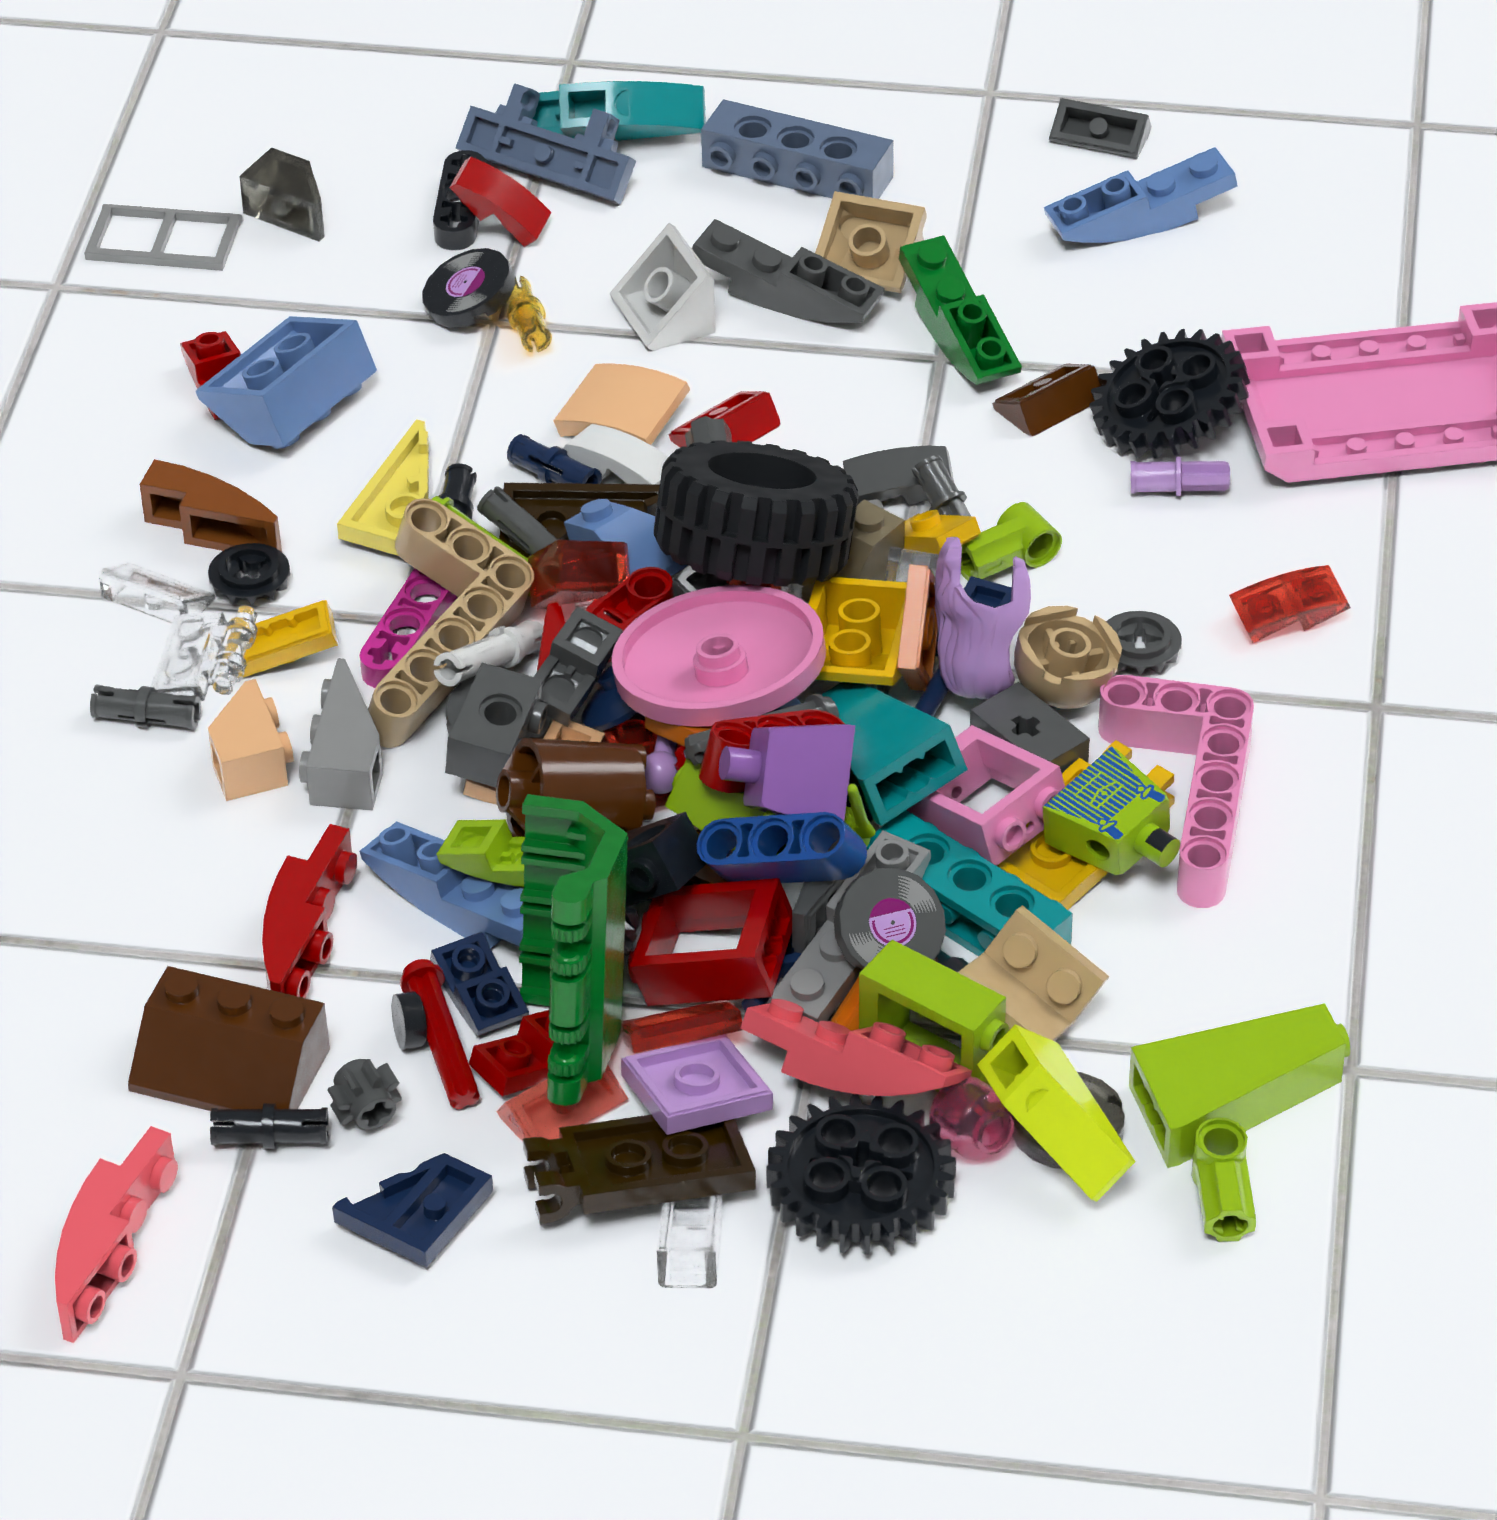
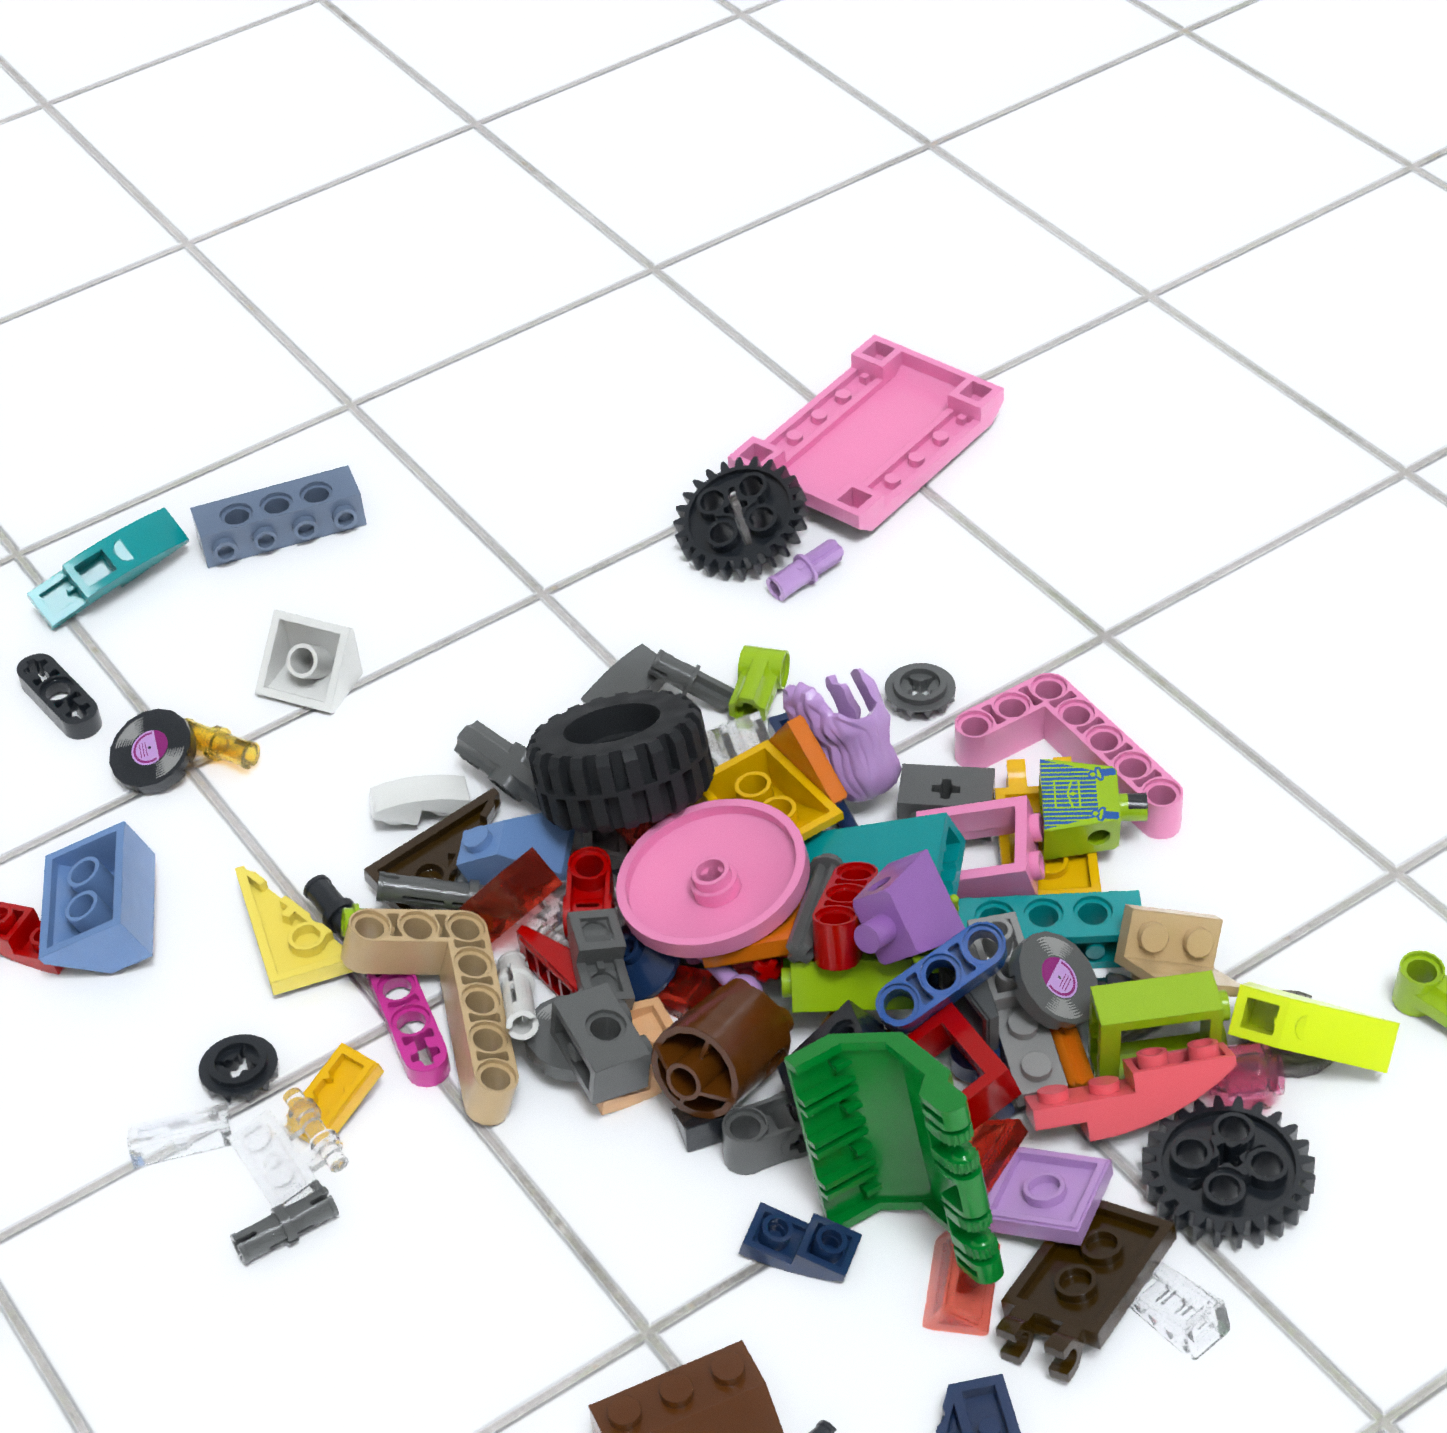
camera: 40 degrees left, 0 degrees up
(205, 508) = (152, 1040): dark orange slope -> none
(246, 745) = (411, 1194): light nougat slope -> none
(298, 912) = (619, 1302): red slope -> none
(345, 747) = (487, 1139): light grey slope -> none
(364, 1094) = (836, 1387): dark grey gear -> none
(408, 1020) = (790, 1308): black tile -> none
(447, 1050) = (822, 1299): red axle -> none
(459, 901) = (696, 1188): medium blue slope -> none
(484, 851) = (741, 1128): lime slope -> none
(491, 192) = (98, 672): red slope -> none
(515, 141) = (123, 616): sand blue hinge -> none
(516, 1060) = (898, 1260): red slope -> none
(551, 463) = (347, 840): dark blue pin -> none
(624, 399) = (365, 758): light nougat slope -> none
(746, 413) = (449, 719): red slope -> none
(794, 286) = (393, 604): dark grey slope -> none
(867, 237) = (410, 543): tan slope -> none
(929, 530) = (722, 699): yellow plate -> none
(954, 315) = (539, 561): green slope -> none
(1049, 398) = (652, 572): reddish brown slope -> none
(1066, 656) = (920, 724): tan cylinder -> none
(1100, 128) = (460, 383): dark grey slope -> none
(1133, 209) = (558, 413): medium blue slope -> none
(1234, 1073) = (1353, 931): lime slope -> none
(1299, 595) = (979, 603): clear red slope -> none

